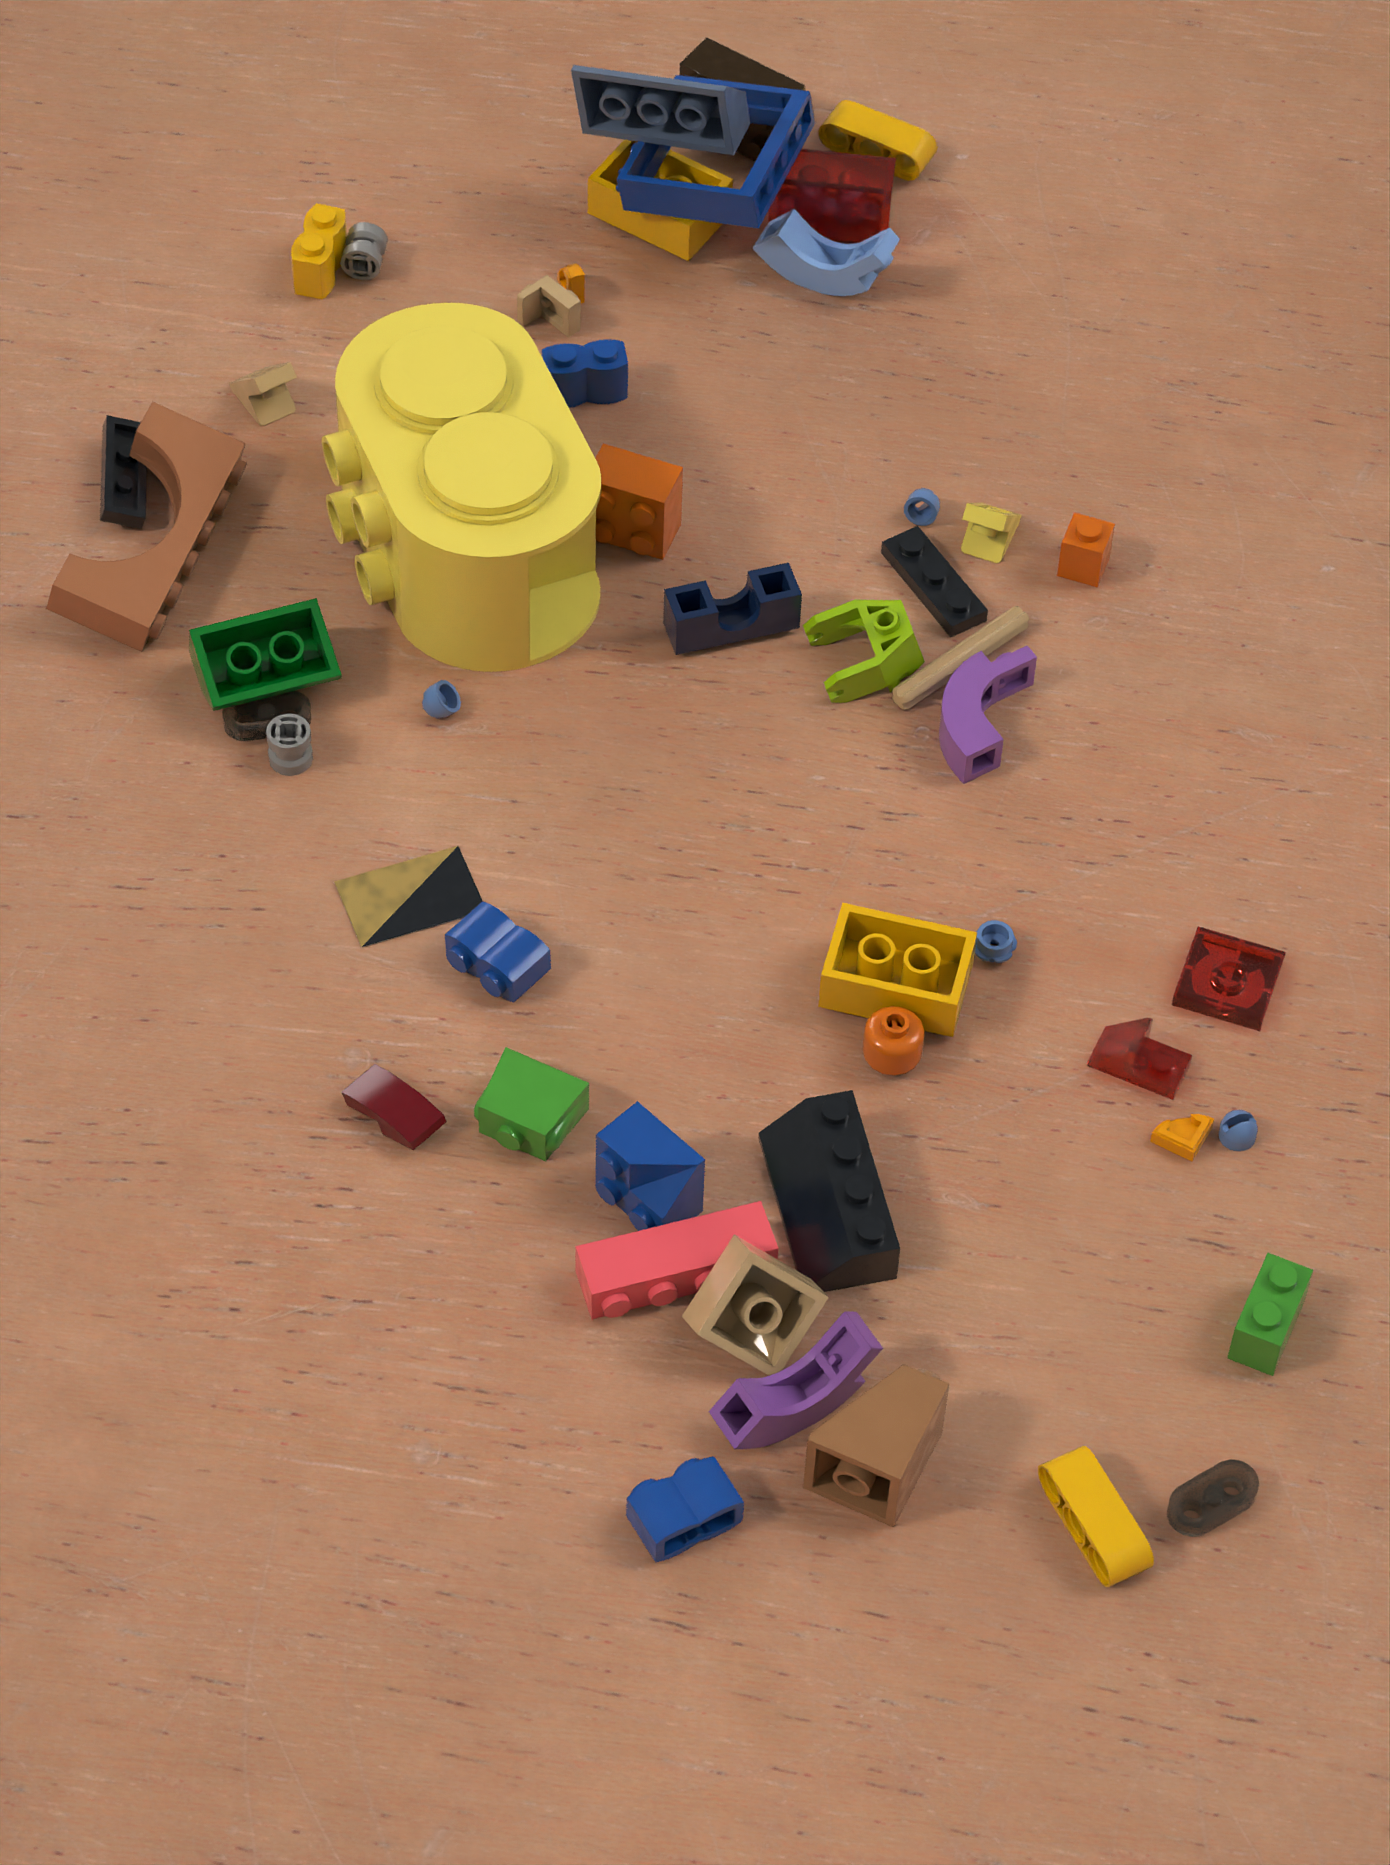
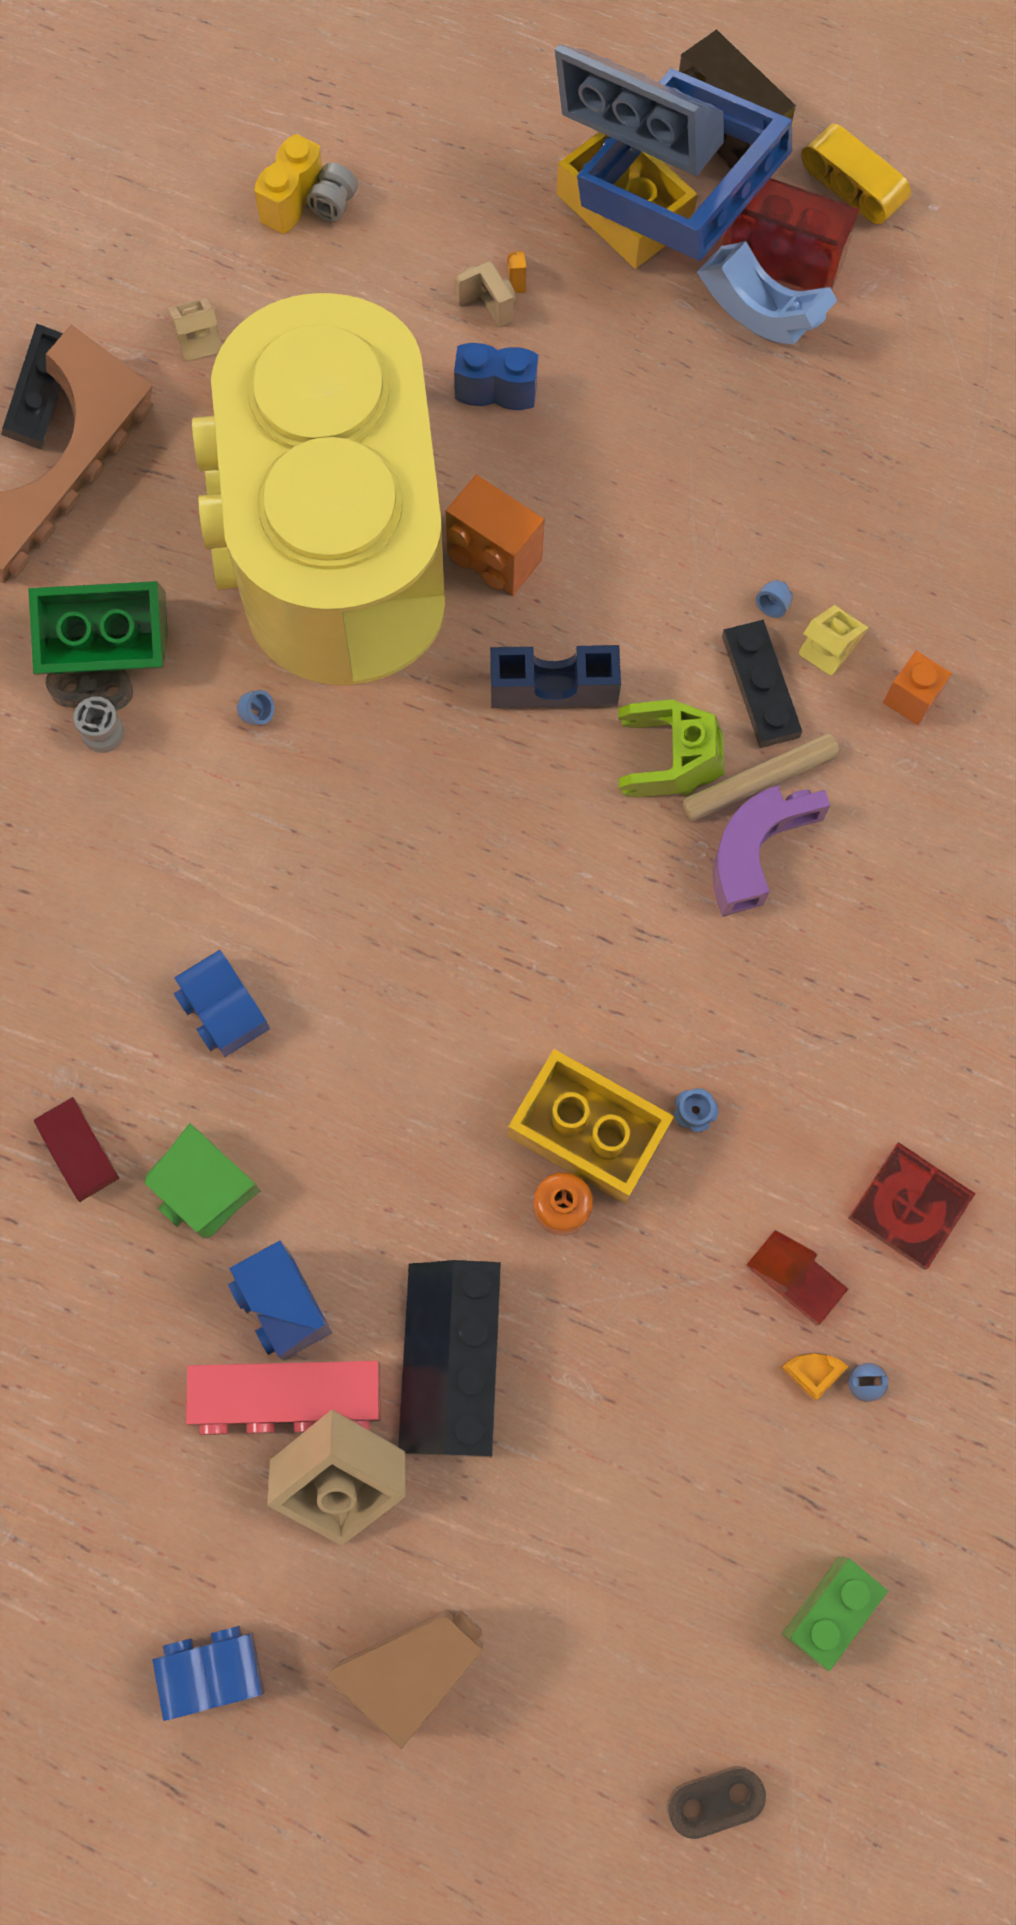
camera: 15 degrees right, 20 degrees up
(409, 896) = (166, 913): sticker -> none
(782, 1404) = (347, 1579): medium lavender arch -> none
(1095, 1516) = (596, 1793): yellow beam -> none

